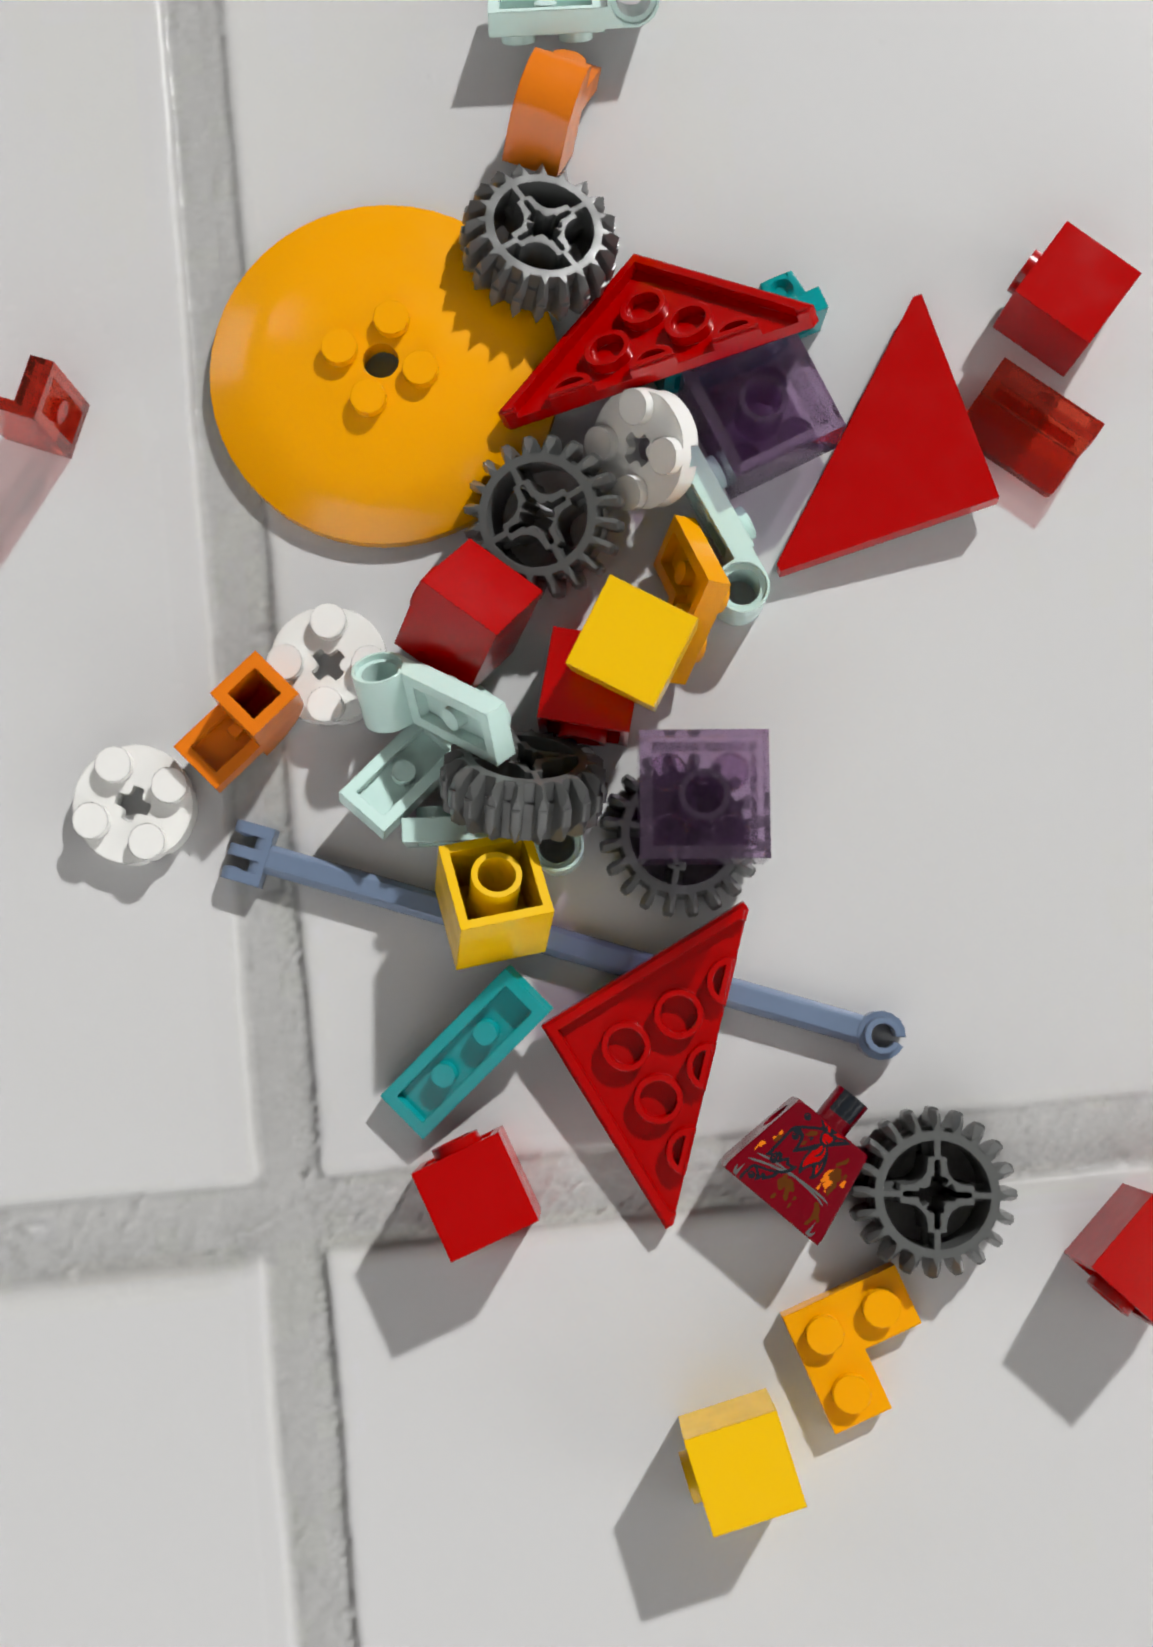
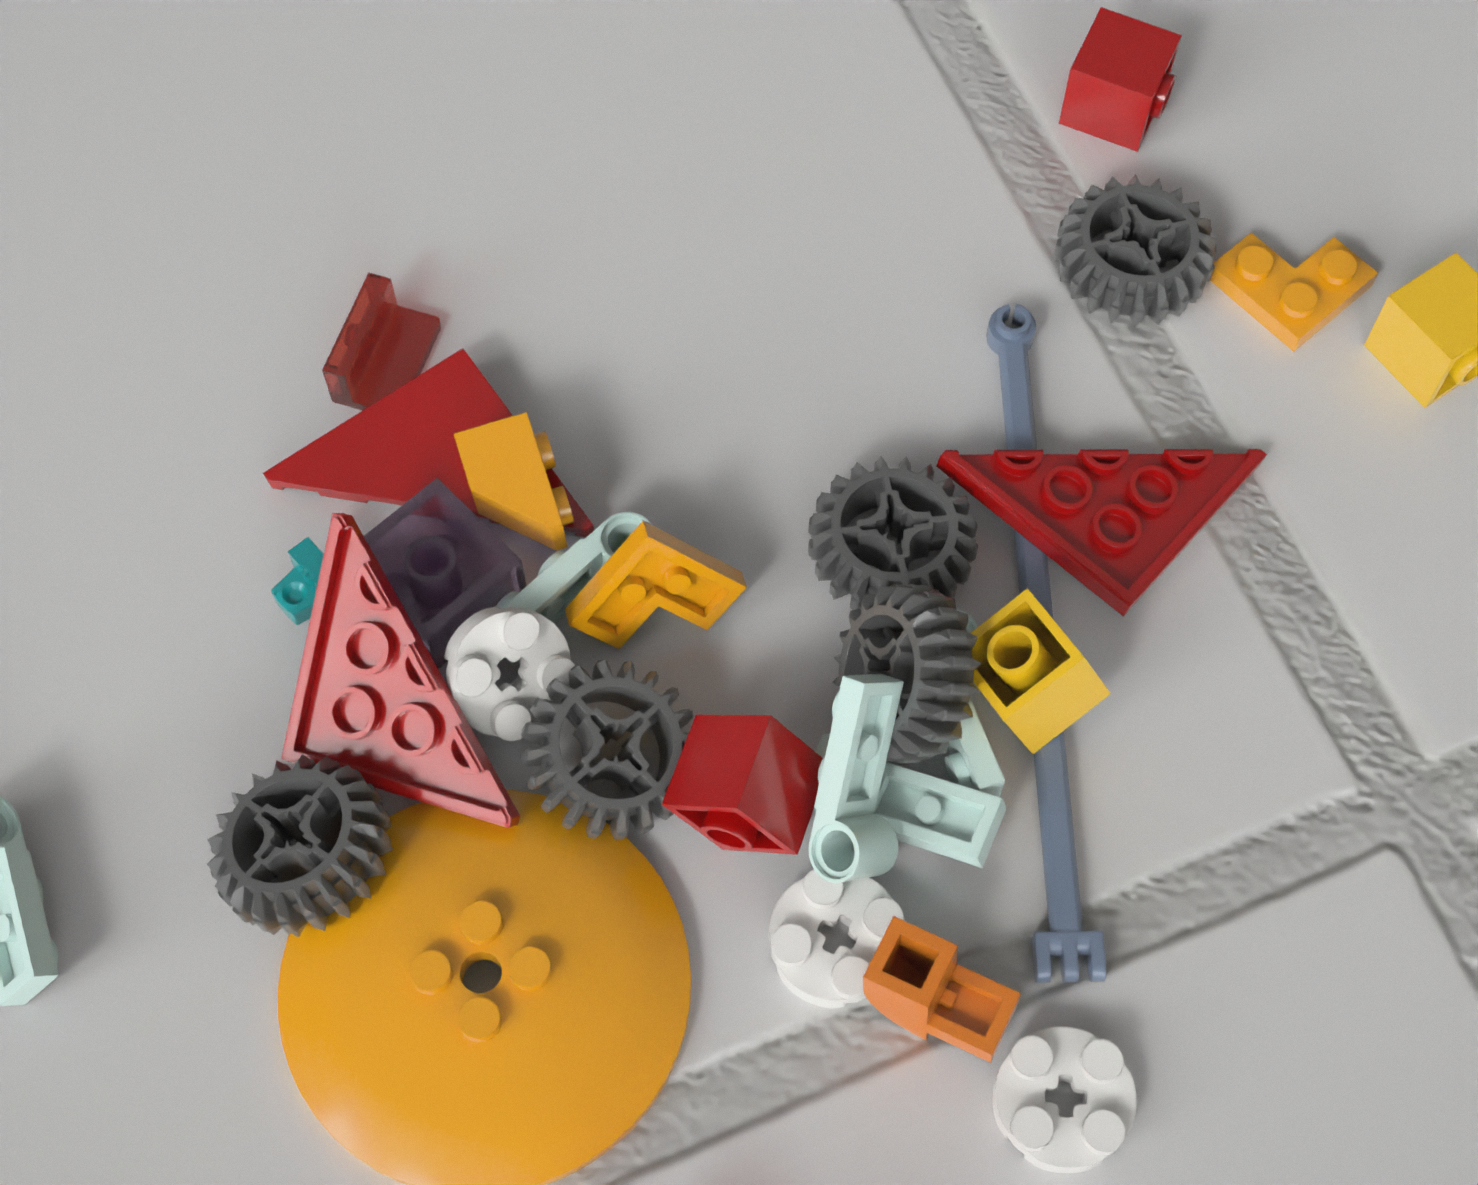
camera: 110 degrees left, 20 degrees down
(466, 1051) = (1184, 669): teal hinge -> none
(476, 1191) = (1313, 613): red head -> none
(549, 109) = (134, 878): orange brick -> none
(577, 705) = (778, 652): red head -> none
(632, 643) = (741, 577): yellow head -> none
(703, 797) = (865, 492): clear purple brick -> none
(802, 1160) = (1154, 356): dark red torso -> none
(834, 500) = (510, 482): none -> light orange slope
(1064, 298) = (244, 338): red head -> none

